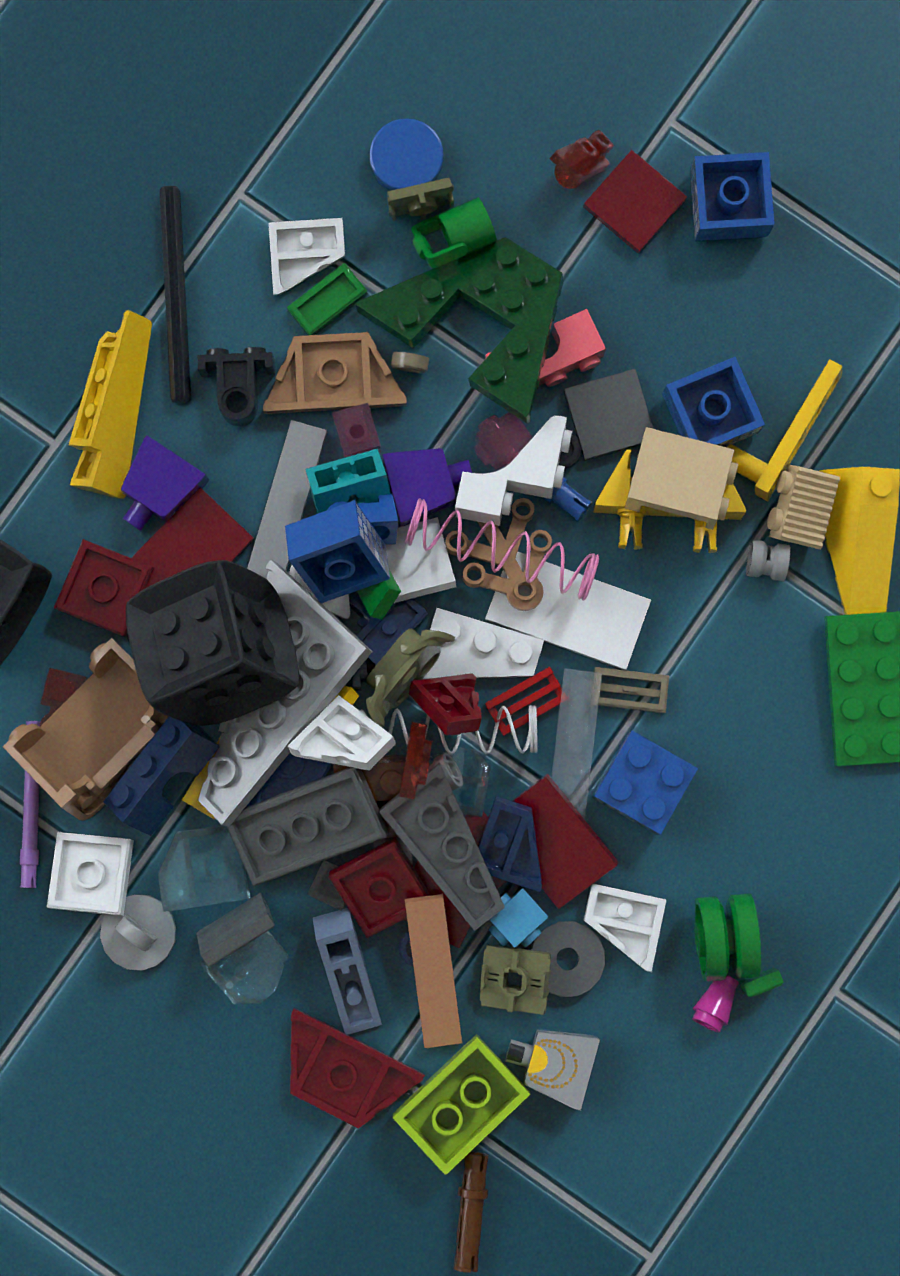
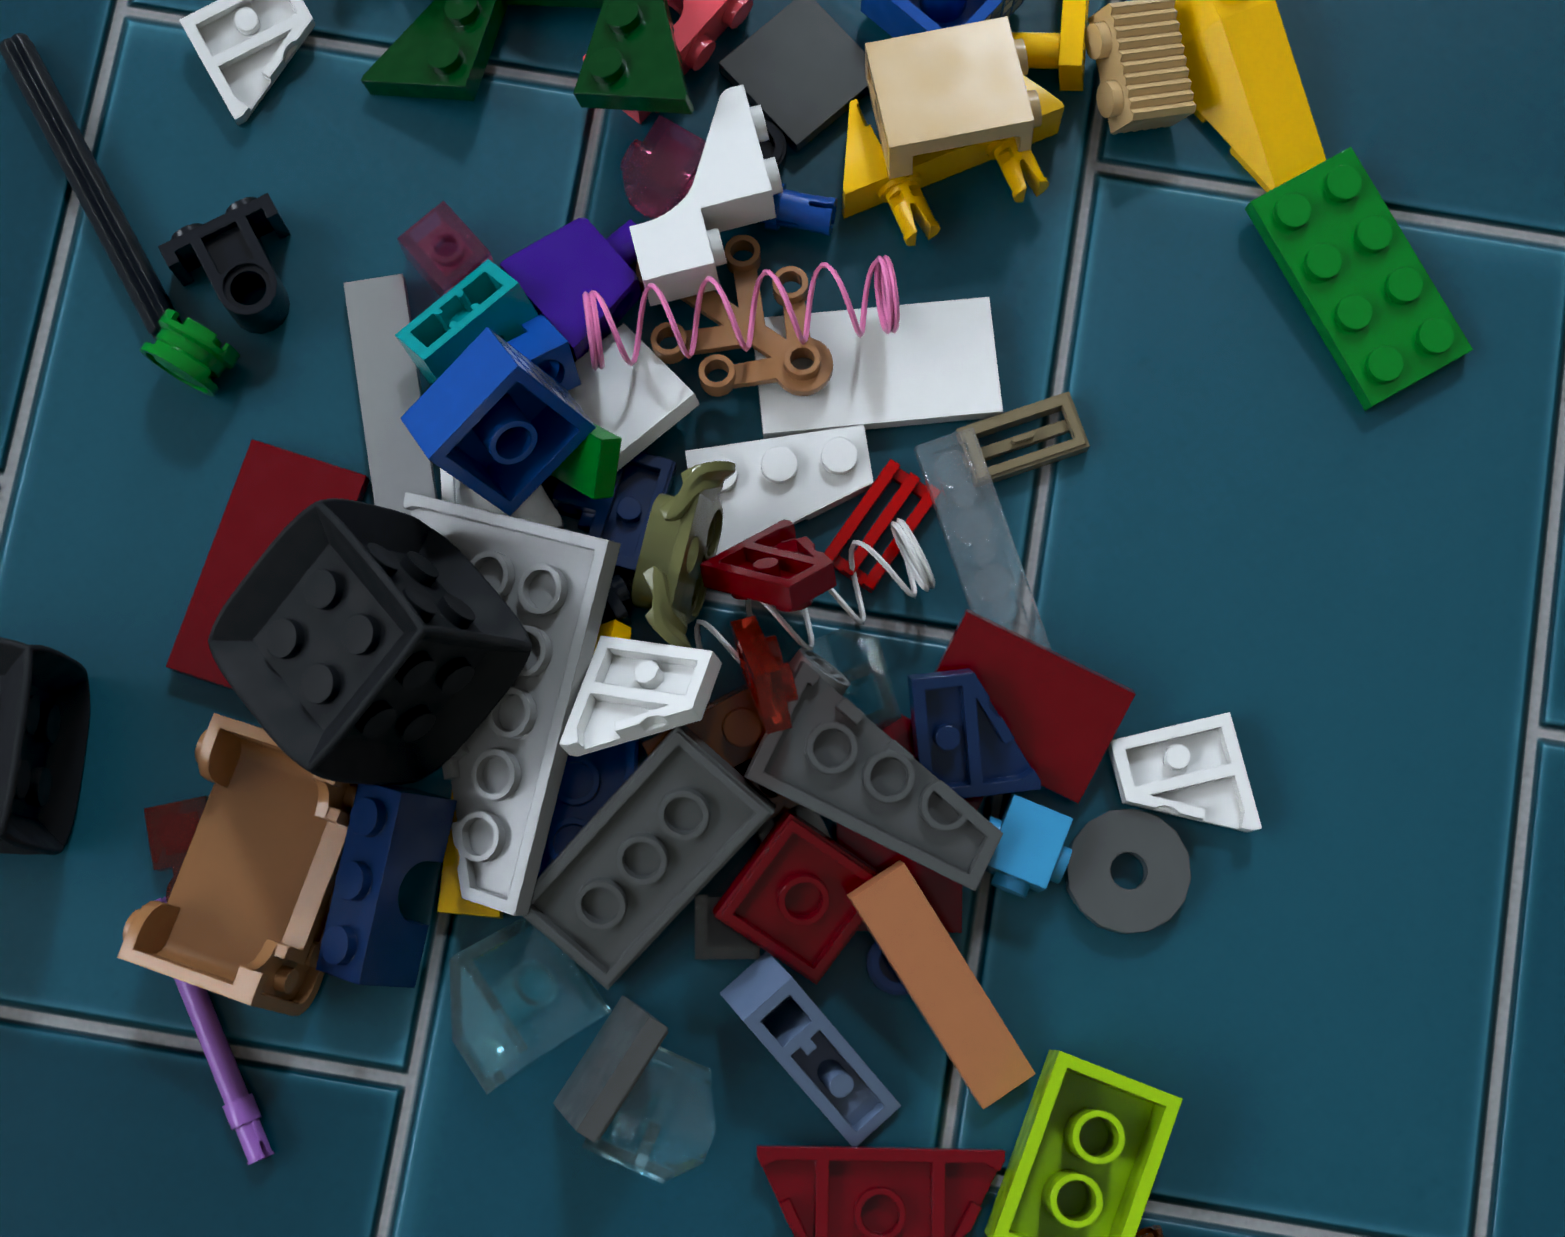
camera: 25 degrees left, 5 degrees down
(90, 873) = (347, 1091): white tile -> none
(101, 587) = (163, 653): dark red tile -> none
(111, 408) = (67, 389): yellow wedge -> none
(140, 936) = (463, 1146): light grey tile -> none
(158, 483) = (186, 460): dark purple torso -> none
(188, 422) = (190, 352): none -> green wheel
(327, 300) = (317, 96): green tile -> none
(333, 375) = (370, 190): medium nougat wing -> none
(410, 362) = (478, 123): dark tan tile -> none
(535, 973) = (1079, 967): olive piece -> none
(556, 1064) = (1193, 1035): light grey torso -> none
(644, 783) = (1113, 558): blue brick -> none
(715, 1005) = (1378, 831): dark pink cone -> none
(727, 937) = (1351, 720): green wheel -> none
(766, 981) = (1428, 767): green tile -> none
(768, 560) = (1127, 165): light grey wheel -> none

